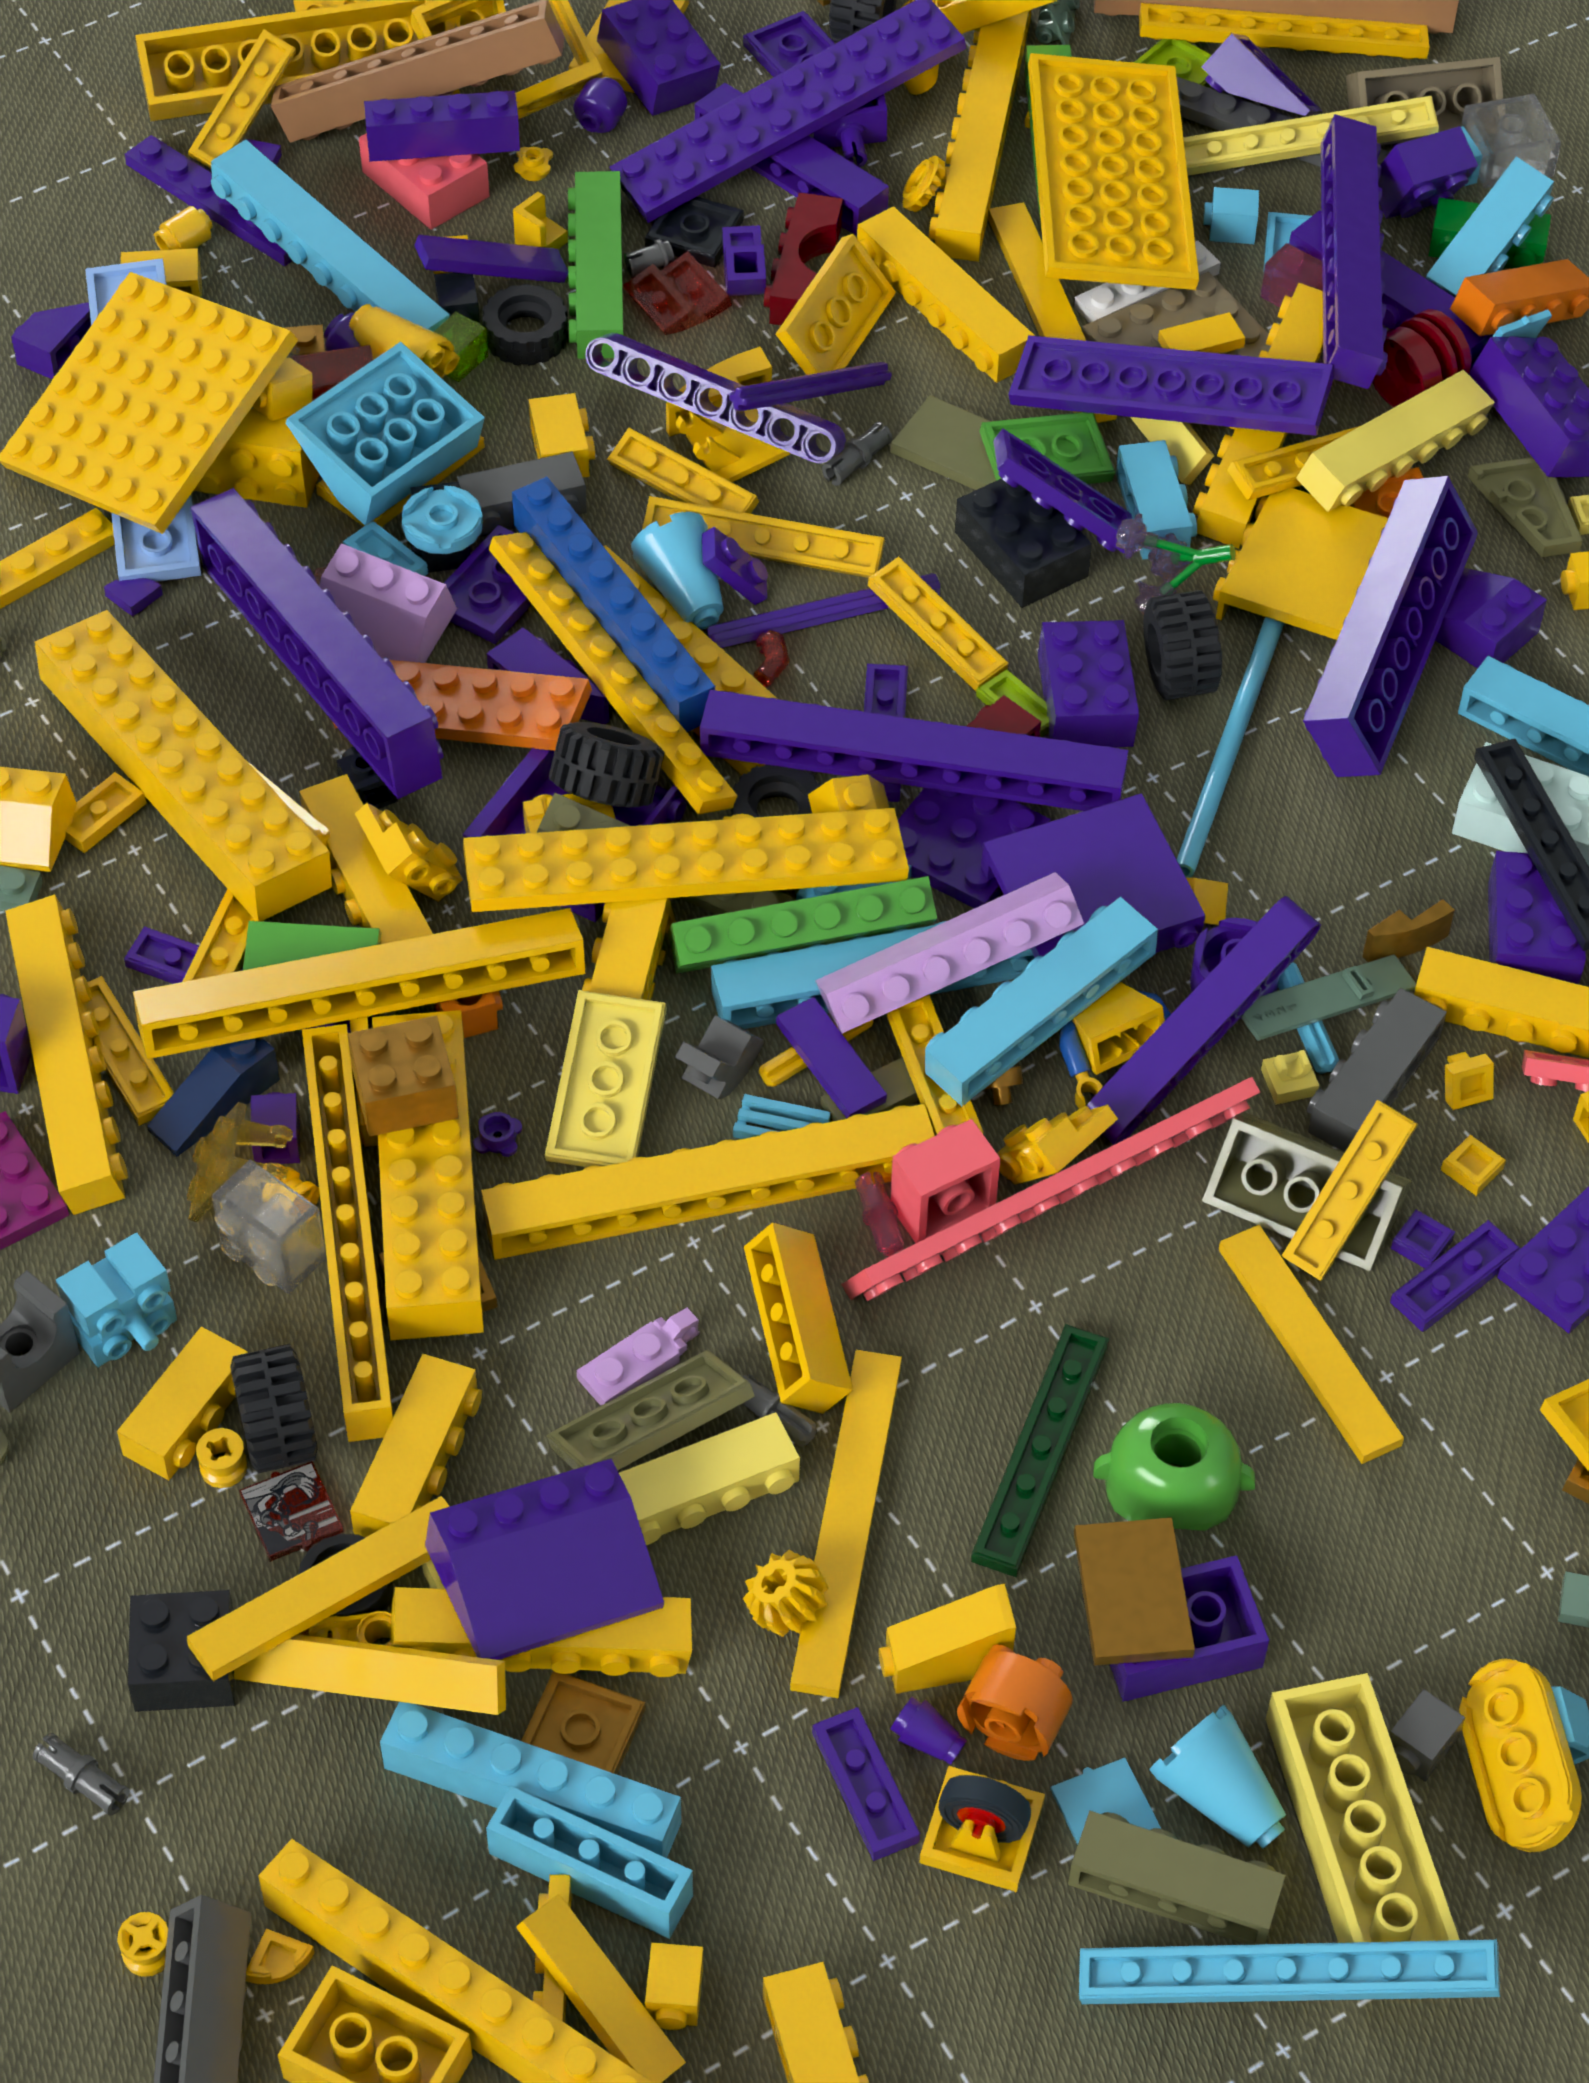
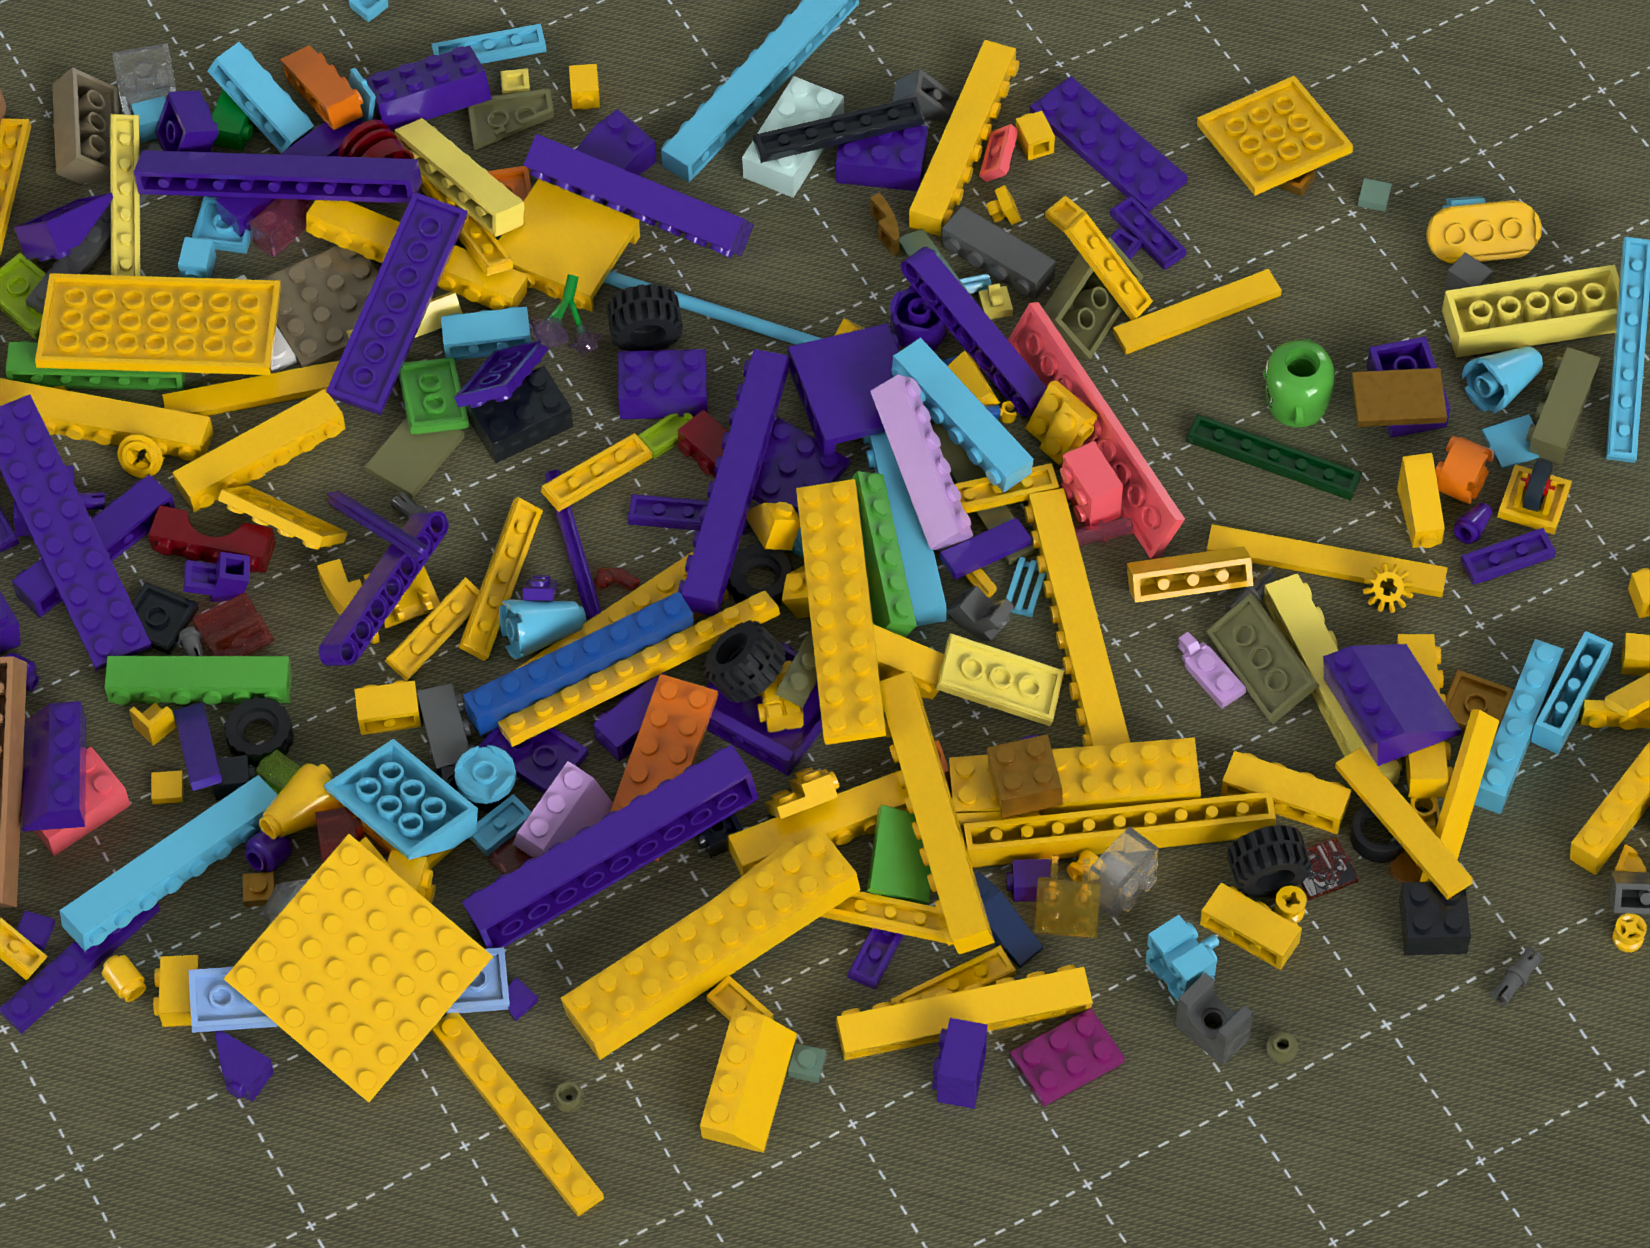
camera: 85 degrees left, 5 degrees up
(1209, 335) = (335, 288): yellow tile -> none

